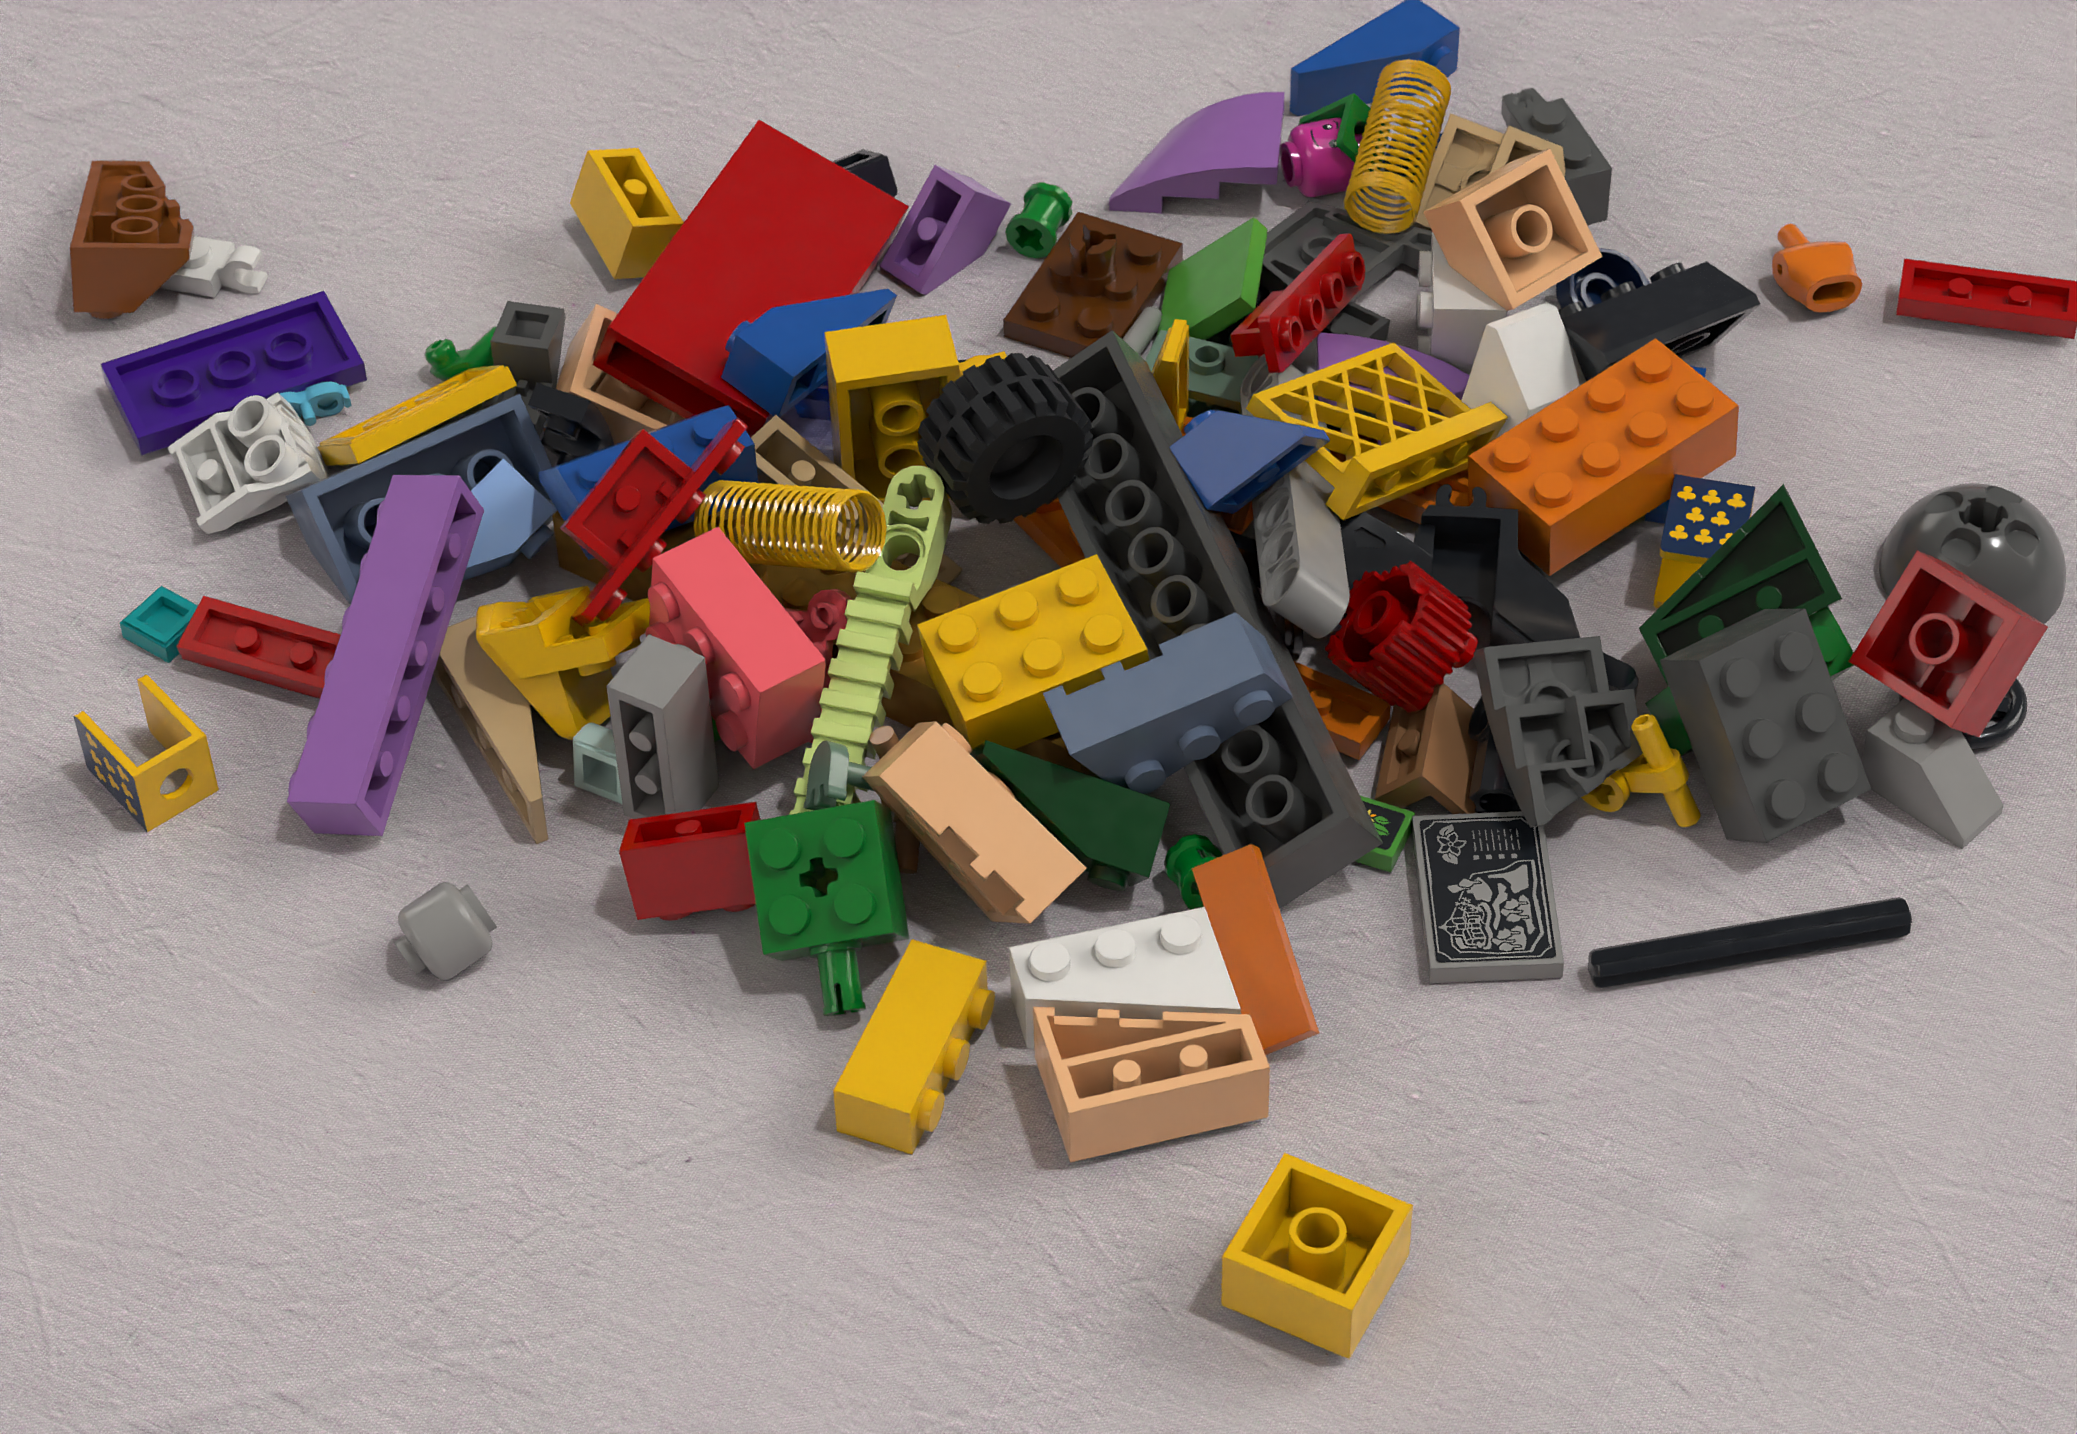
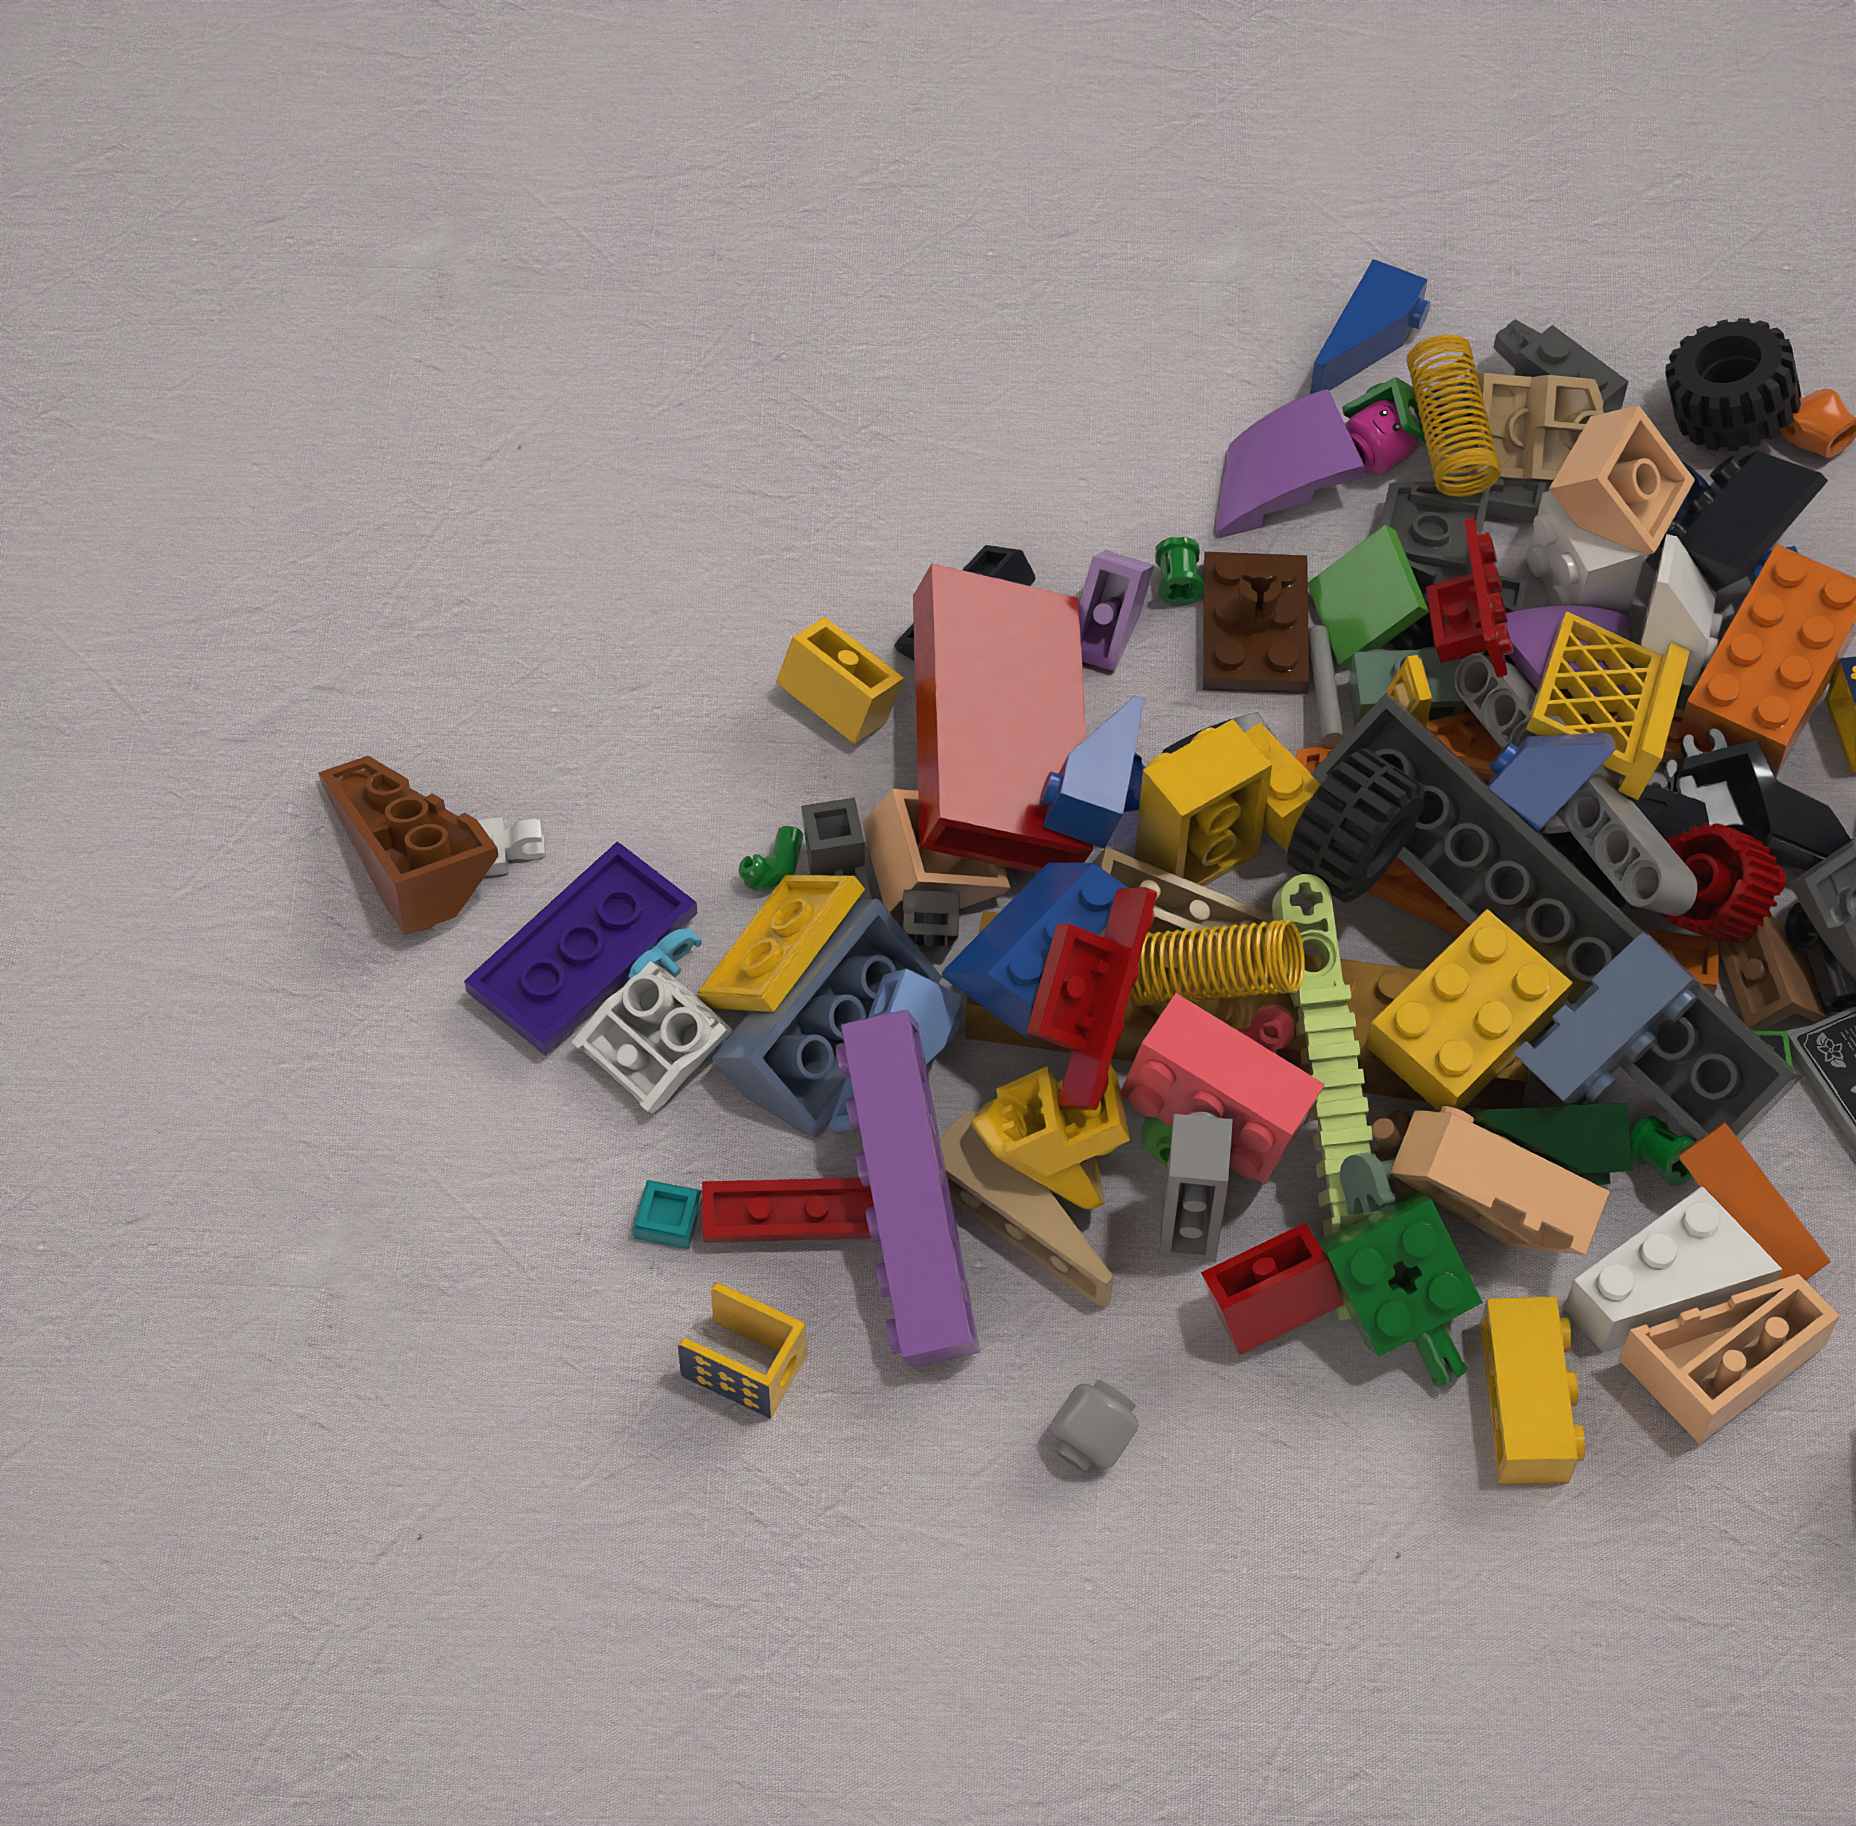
camera: 25 degrees left, 10 degrees up
(596, 762) = (1132, 1217): light aqua brick -> none
(1732, 204) = (1733, 384): none -> black tyre

